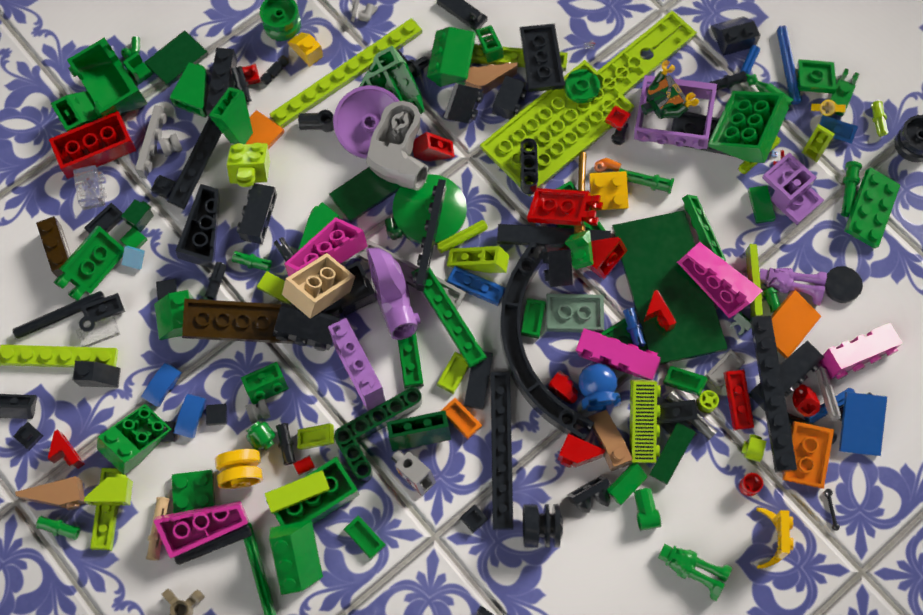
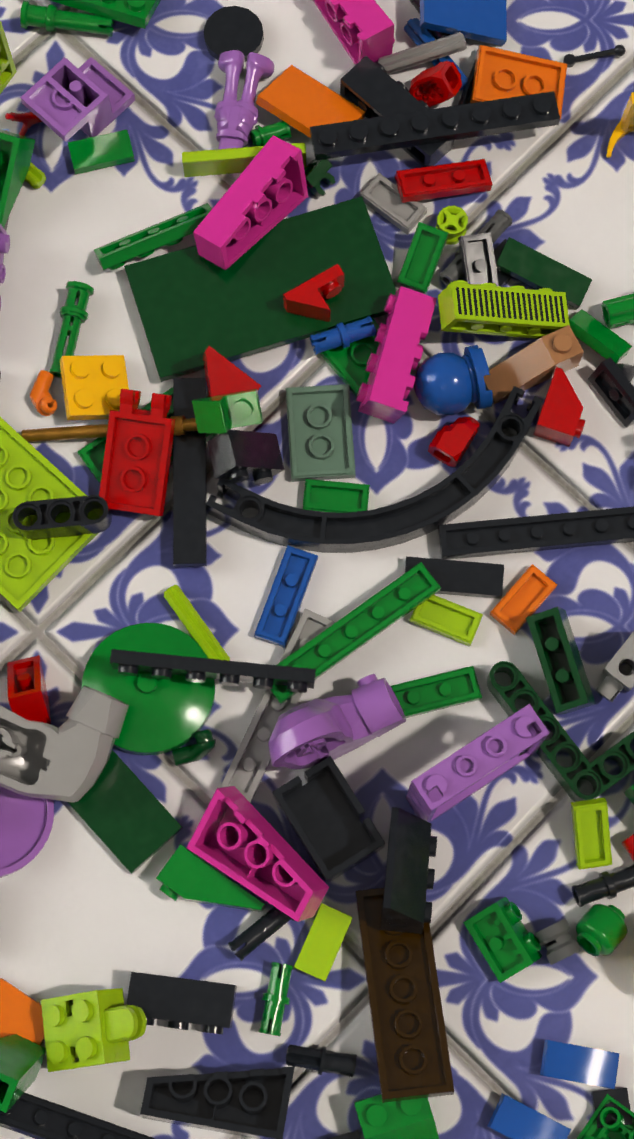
camera: 95 degrees left, 5 degrees up
(216, 414) = (569, 1017): black tile -> none
(318, 285) = (344, 846): tan brick -> none
(479, 259) = (240, 595): lime slope -> none
(753, 481) = (581, 156): red wheel -> none
(754, 448) = (519, 157): lime plate -> none

